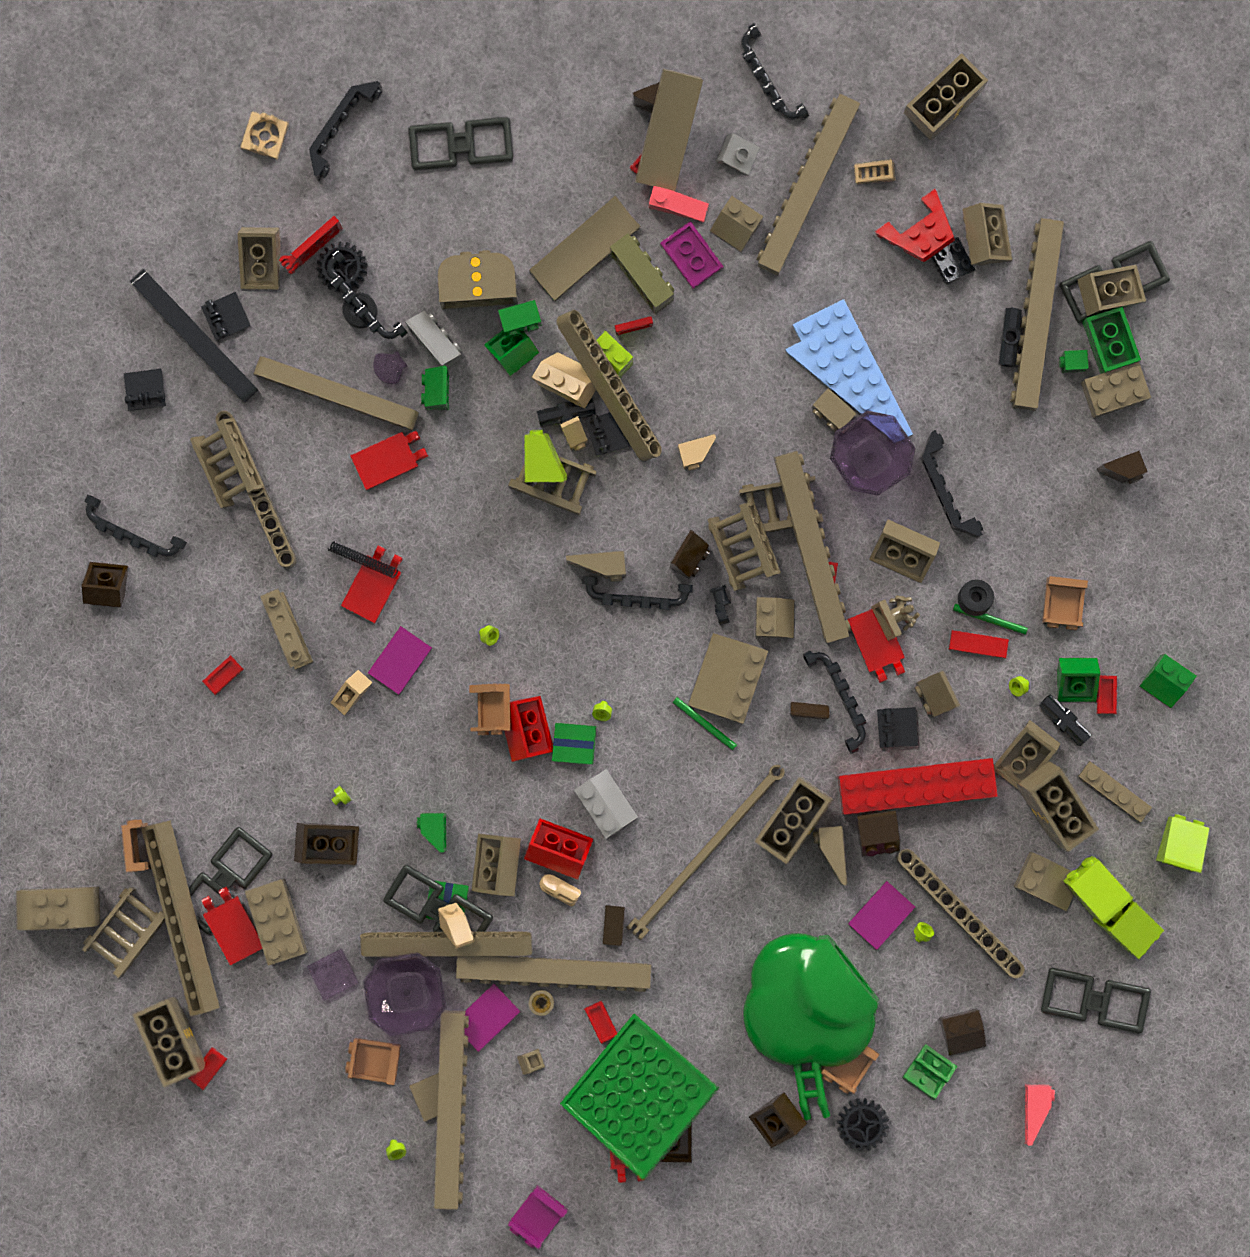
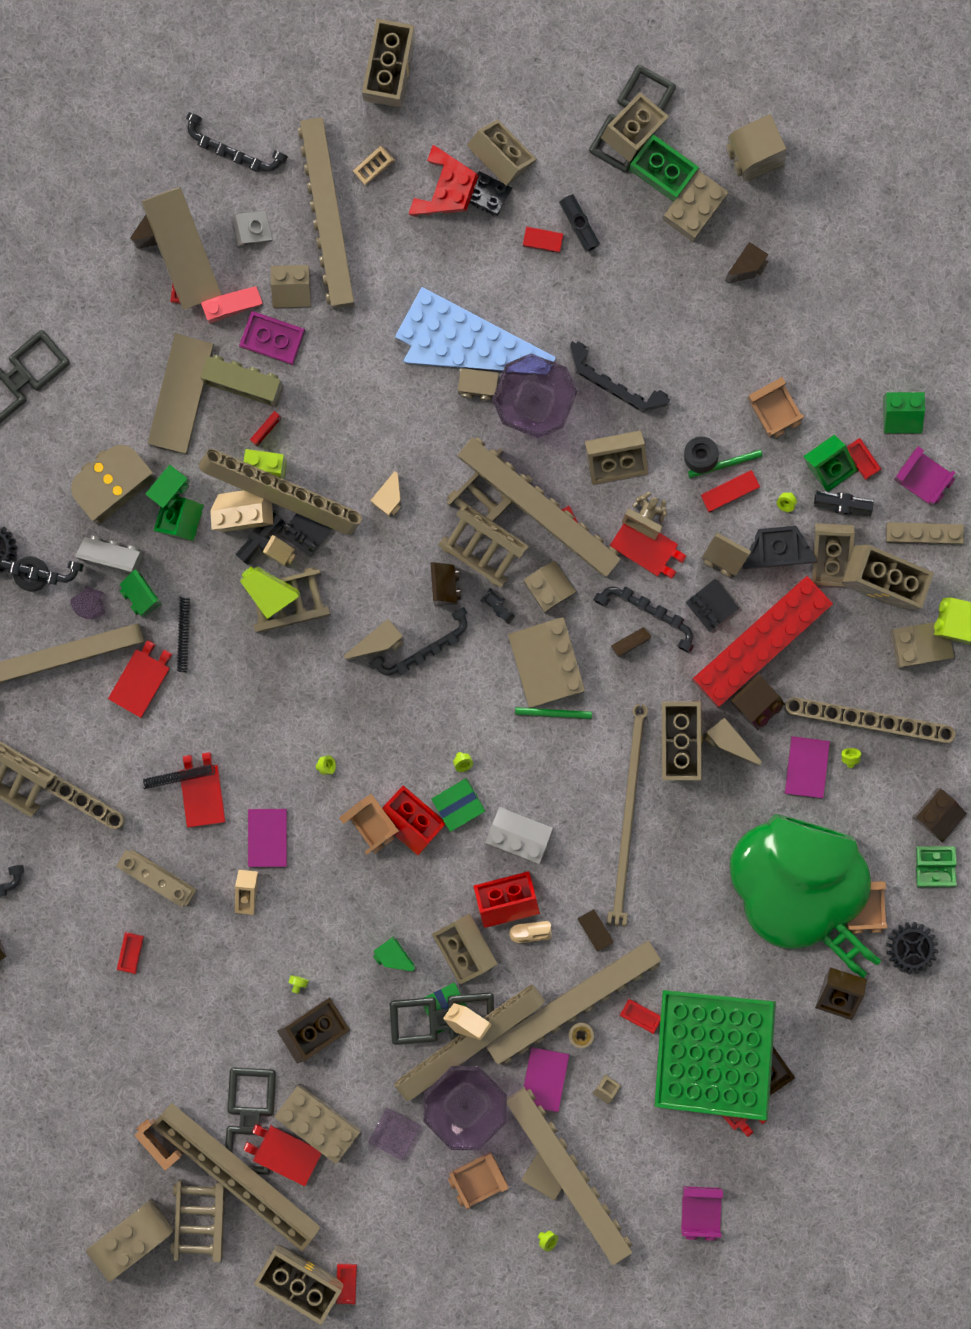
camera: 30 degrees left, 0 degrees up
(447, 443) = (181, 628): none -> black piece
(970, 329) = (542, 239): none -> red tile
(985, 719) = (779, 548): none -> black wing
(1038, 314) = (590, 191): dark tan brick -> none
(1074, 361) = (645, 206): green brick -> none
(1147, 746) = (924, 477): none -> magenta panel
(1199, 378) = (756, 148): none -> dark tan brick

